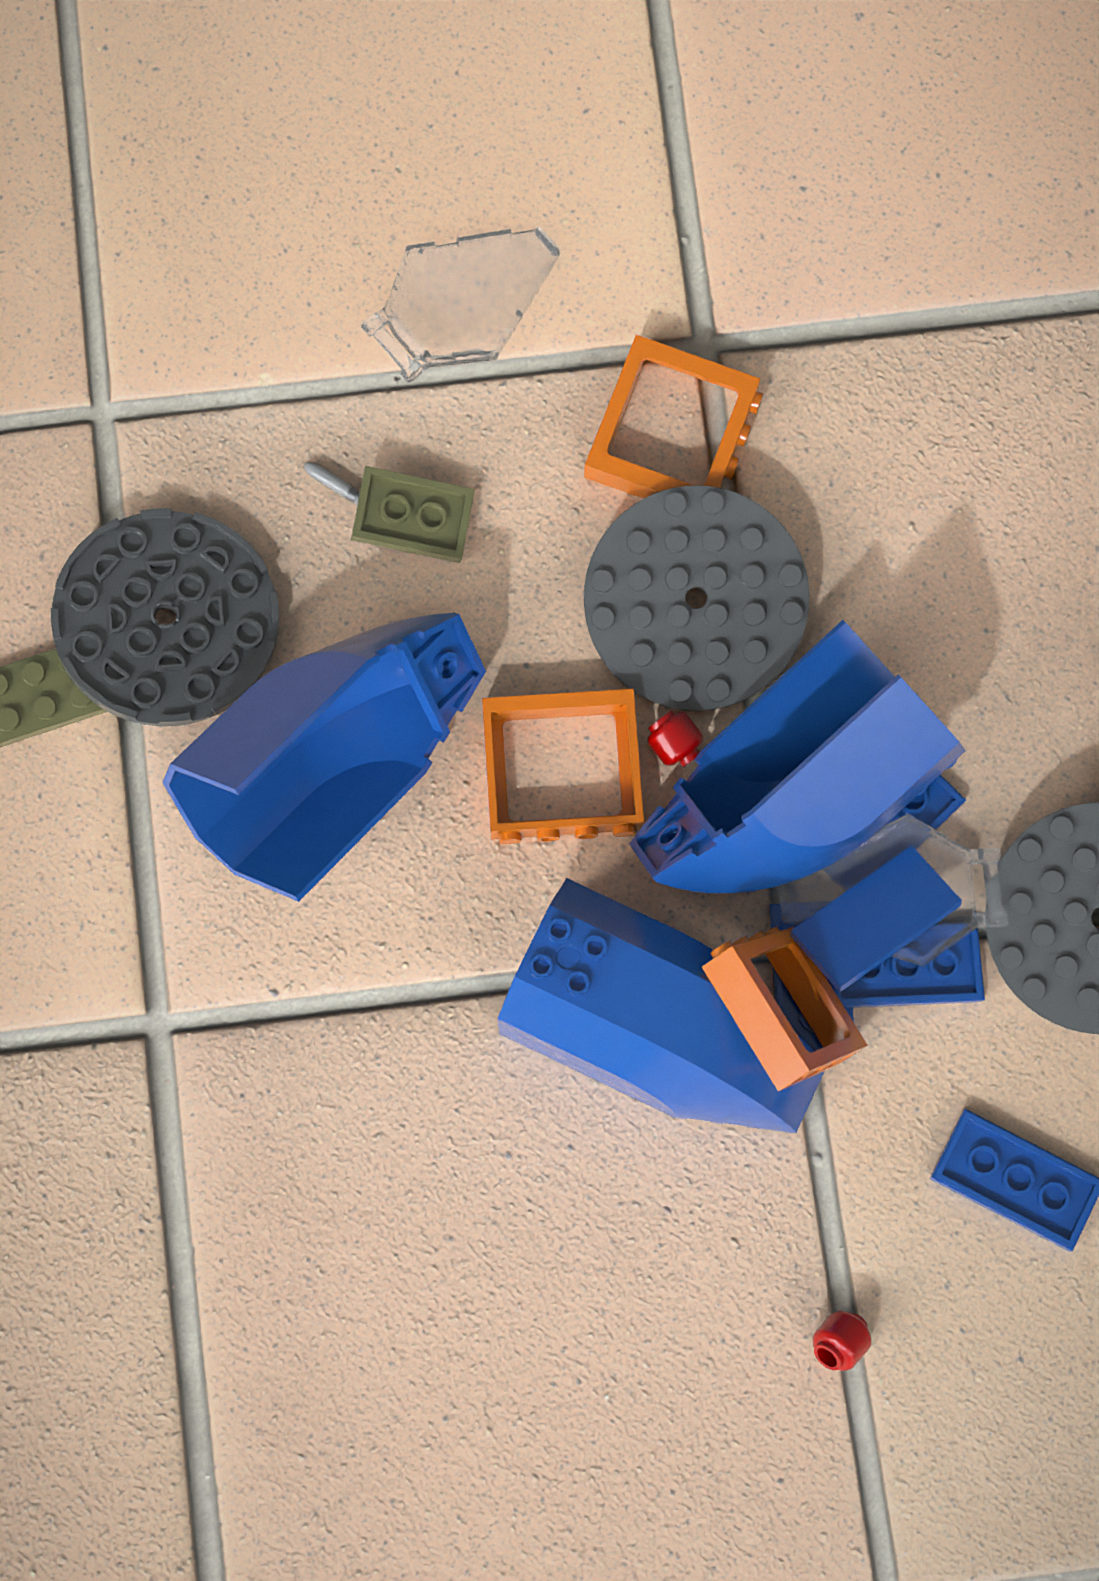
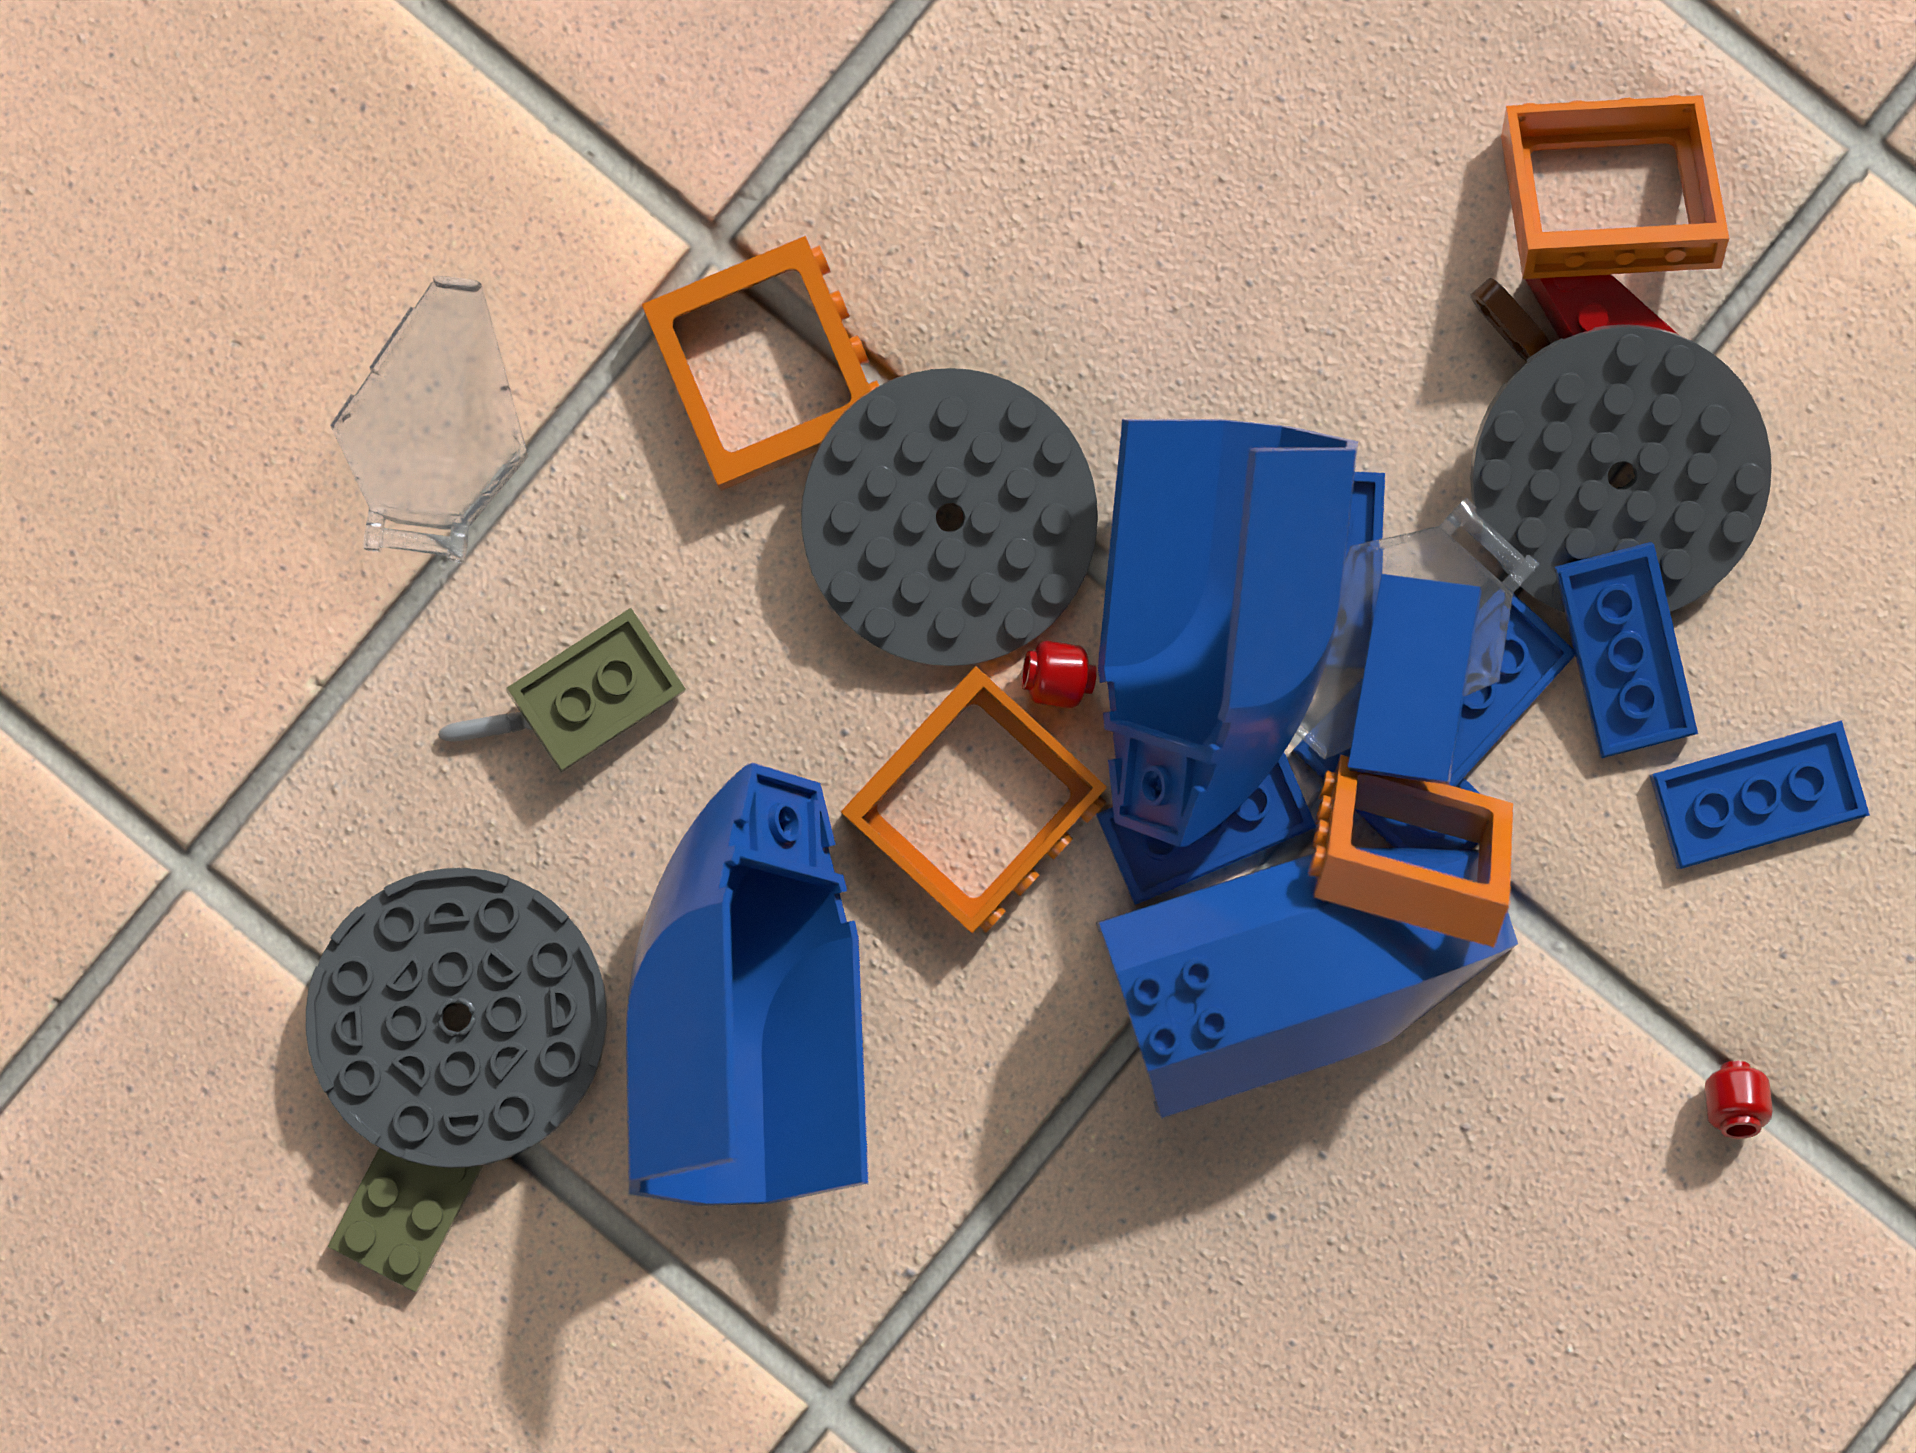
camera: 40 degrees left, 10 degrees up
(701, 915) = (1265, 819): none -> blue tile
(1014, 1022) = (1626, 650): none -> blue tile

